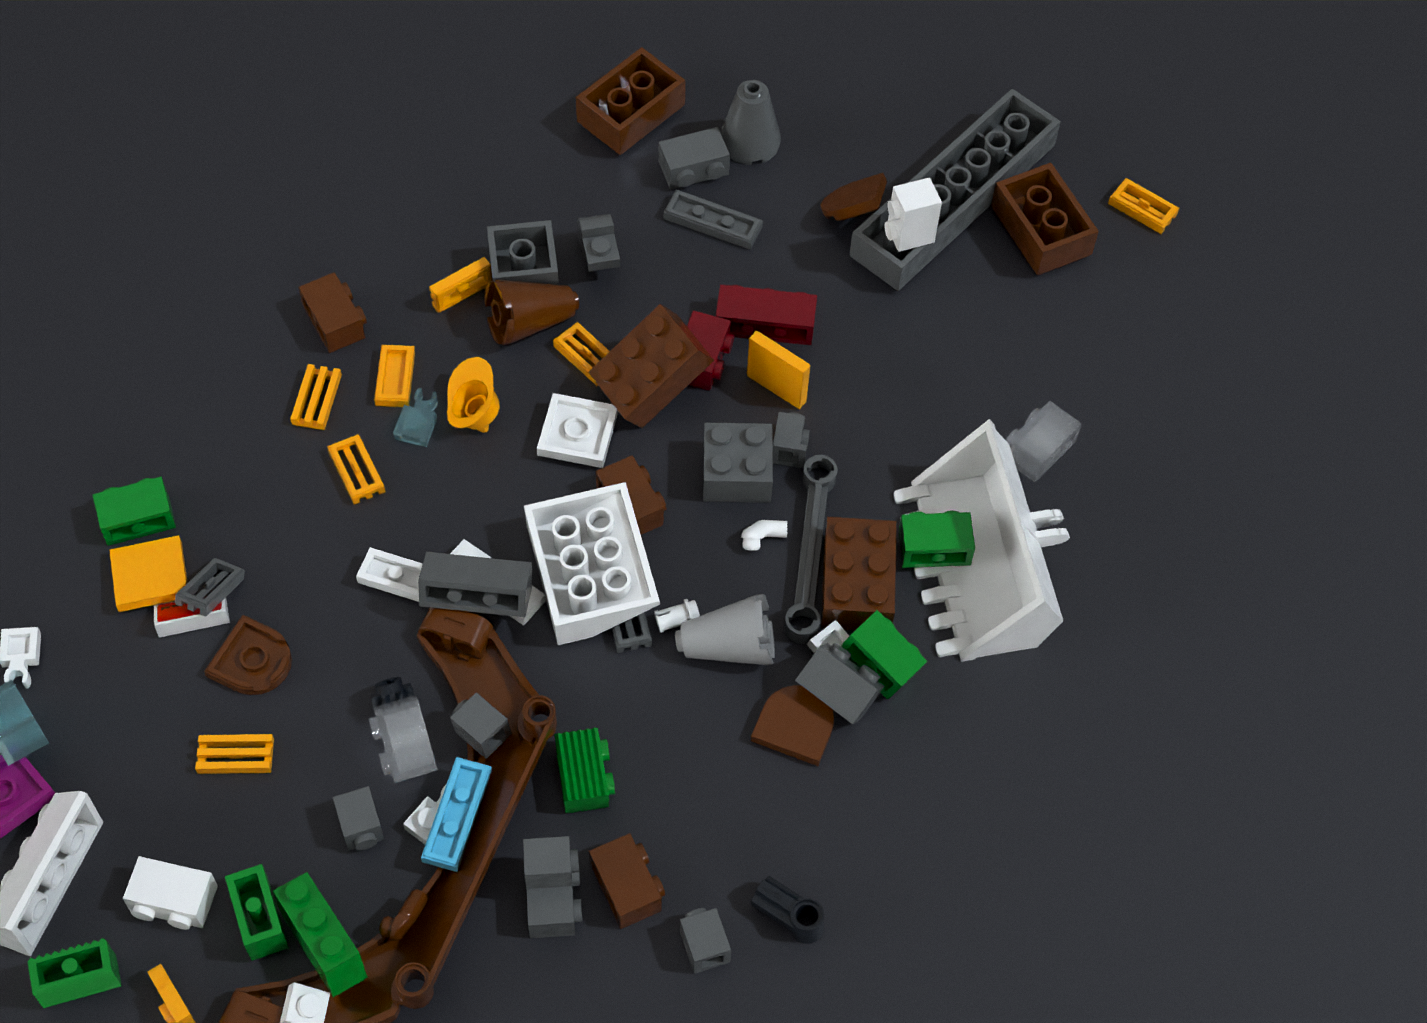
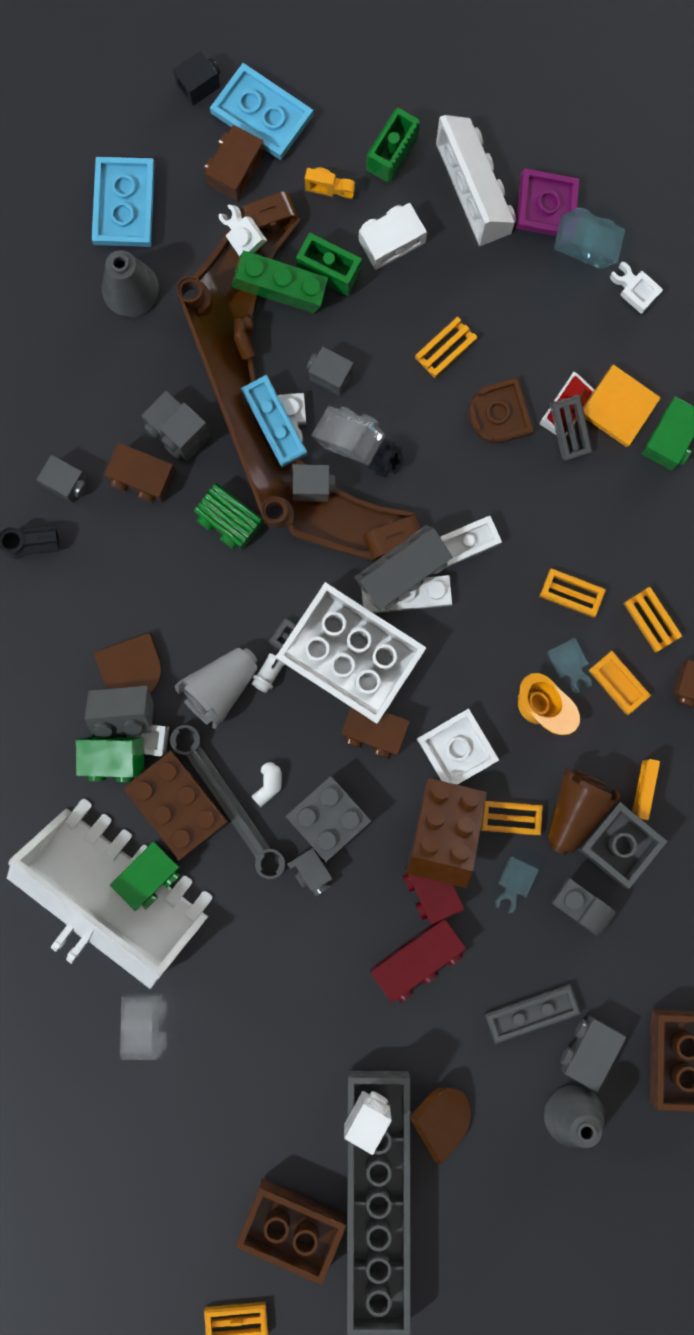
camera: 140 degrees right, 25 degrees up
(630, 307) = (516, 879): none -> clear light blue plate
(778, 369) = (362, 913): light orange tile -> none

